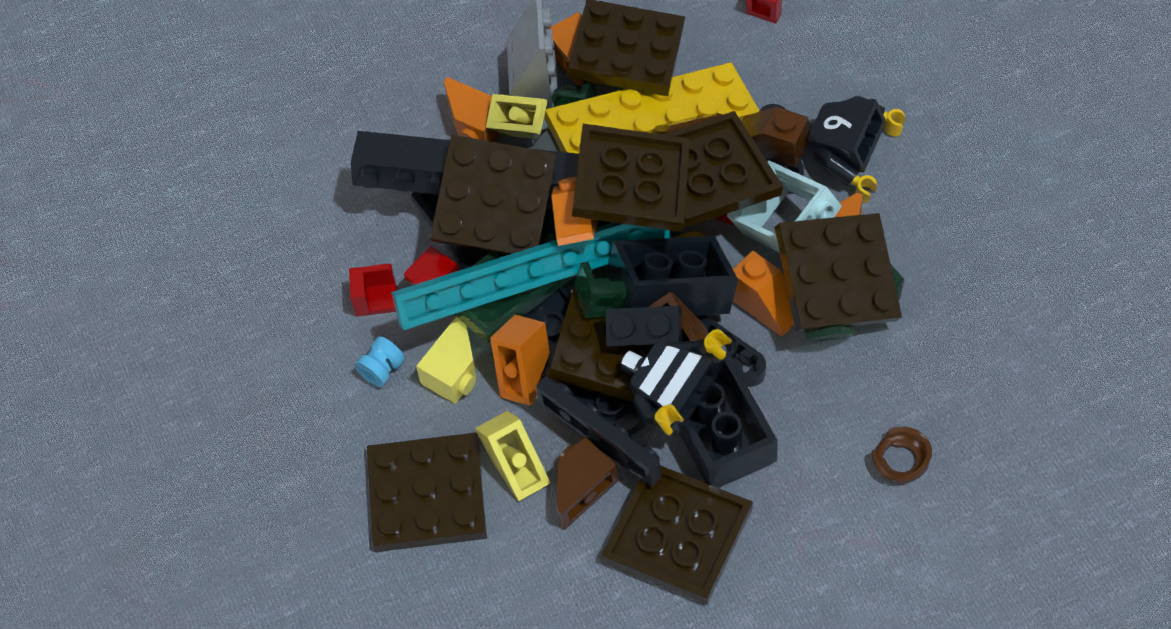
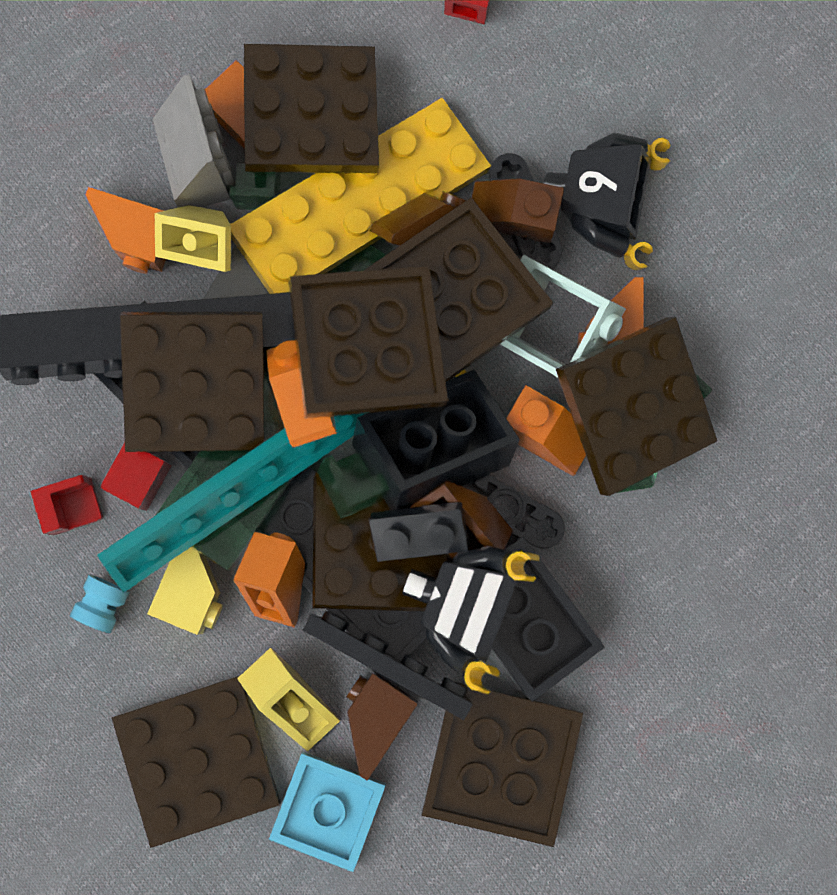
camera: 20 degrees left, 25 degrees up
(524, 543) = (327, 811): none -> medium azure plate
(904, 438) = (764, 620): reddish brown piece -> none

